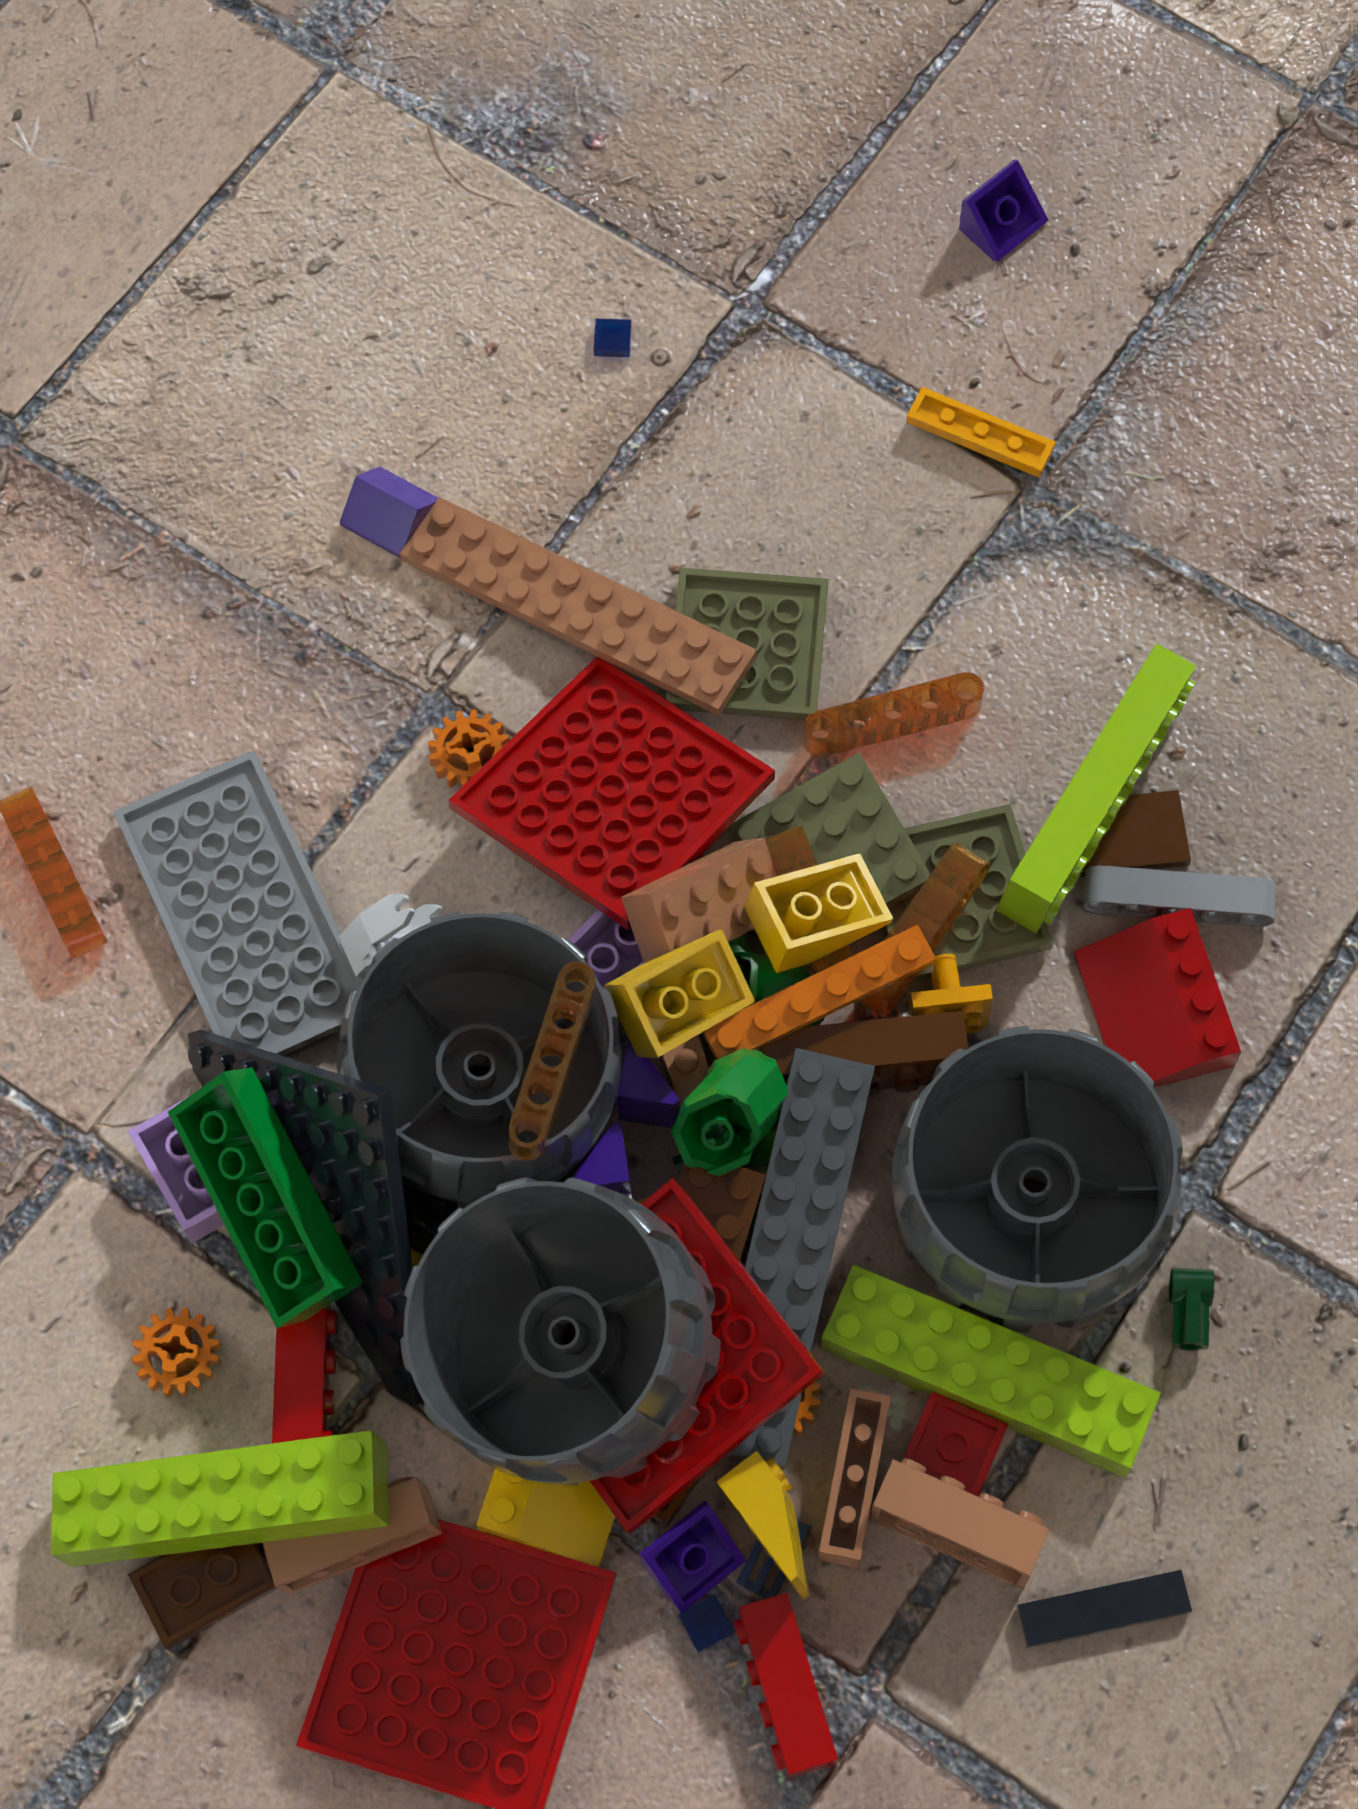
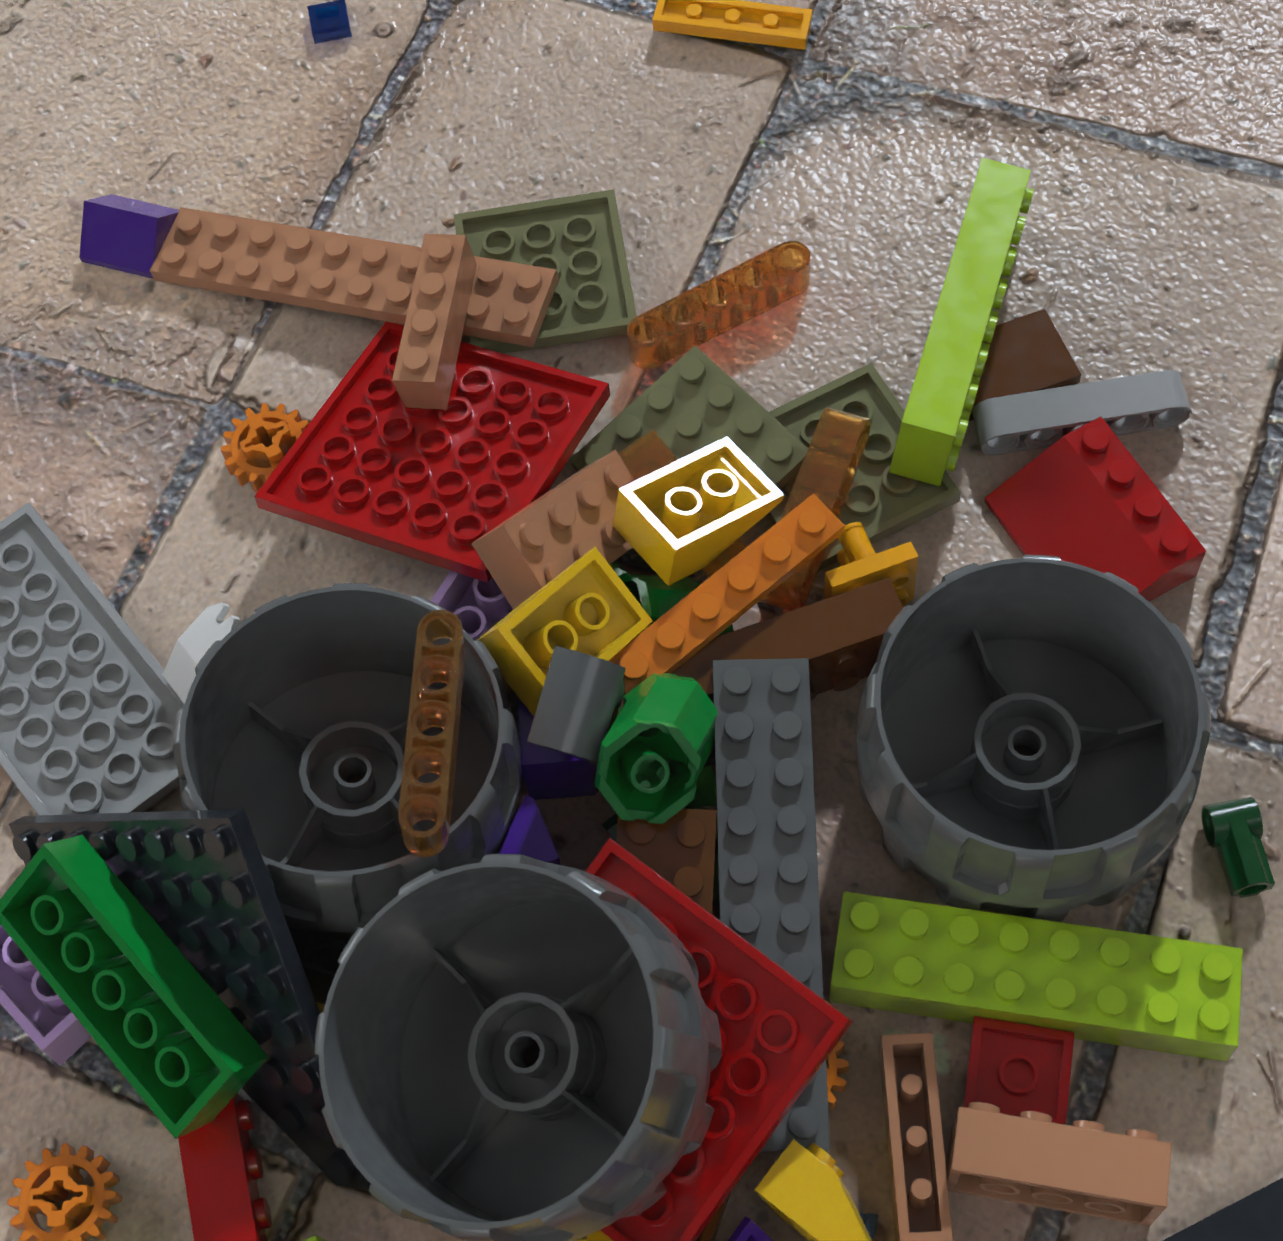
camera: 10 degrees left, 5 degrees down
(638, 677) = (435, 321): none -> nougat brick
(673, 1062) = (577, 704): none -> dark grey brick

